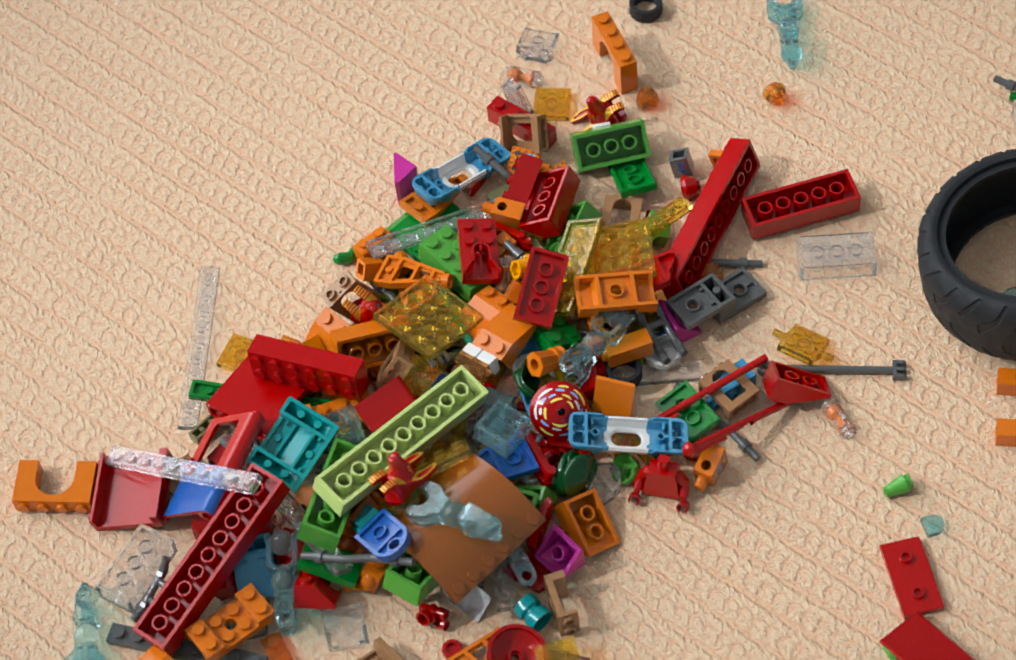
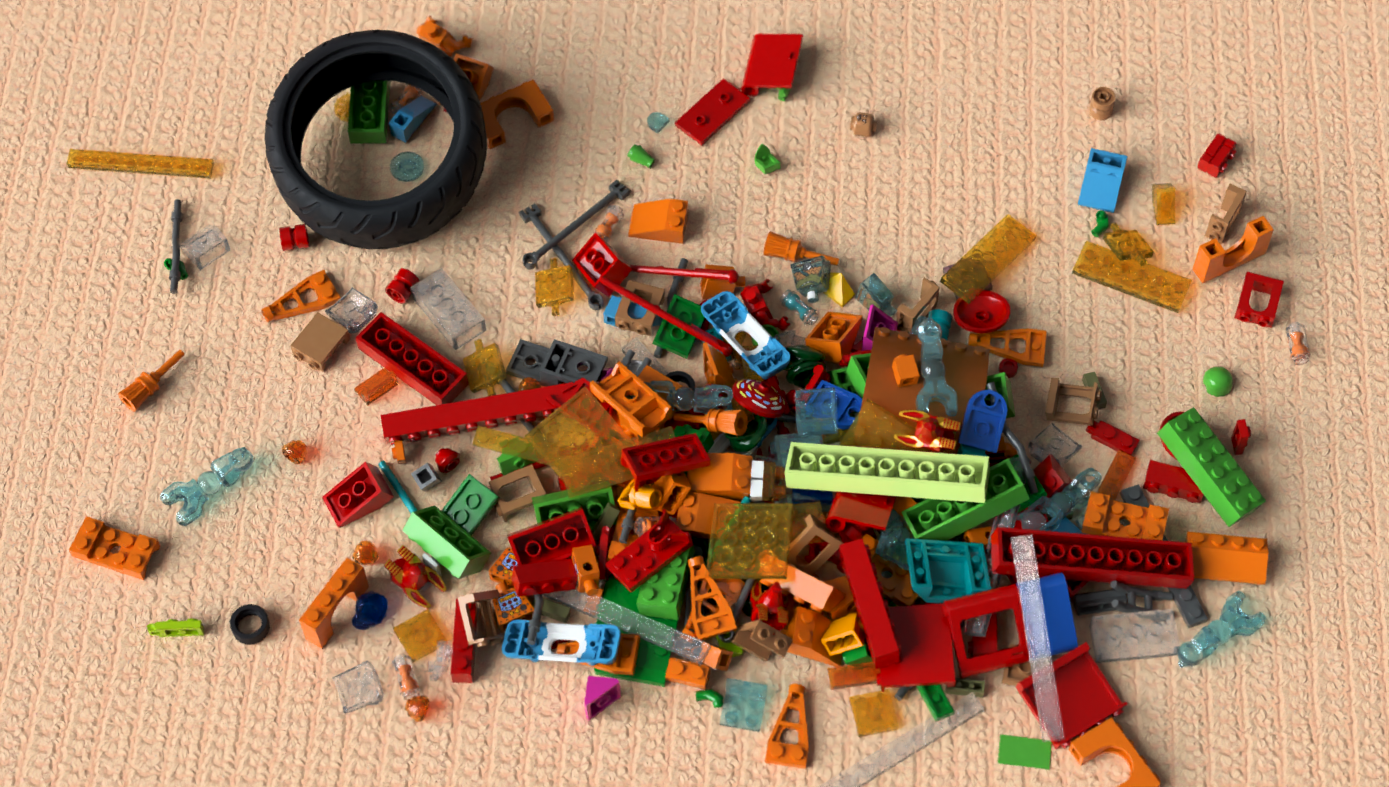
camera: 130 degrees left, 5 degrees up
(127, 436) = (1024, 752): none -> bright green sticker
(266, 277) = (785, 753): none -> orange plate
(320, 271) = (743, 705): none -> clear light blue bracket
(472, 492) = (905, 370): none -> orange brick
(492, 72) = (417, 707): none -> clear orange cone
(596, 78) = (369, 610): none -> clear blue hair
(600, 579) = (875, 292): none -> clear light blue torso
(640, 562) = (839, 289): none -> yellow slope
(648, 515) = (793, 302): none -> clear piece
(659, 540) = (811, 277): none -> torso
(692, 148) = (397, 486): none -> teal bar
(702, 545) = (790, 249): none -> orange piece
(703, 118) = (358, 495): none -> red slope
(757, 253) = (484, 368): none -> clear yellow plate
(798, 171) = (376, 386): none -> clear orange panel
(813, 463) = (660, 220): none -> orange slope
(817, 584) = (765, 160): none -> bright green plate
(871, 155) = (319, 341): none -> medium nougat panel
(873, 447) = (616, 191): none -> dark grey hinge
(884, 189) = (353, 310): none -> clear slope
(884, 234) = (400, 287): none -> red wheel
(913, 26) = (146, 384): none -> orange piece
(920, 183) = (321, 286): none -> orange plate

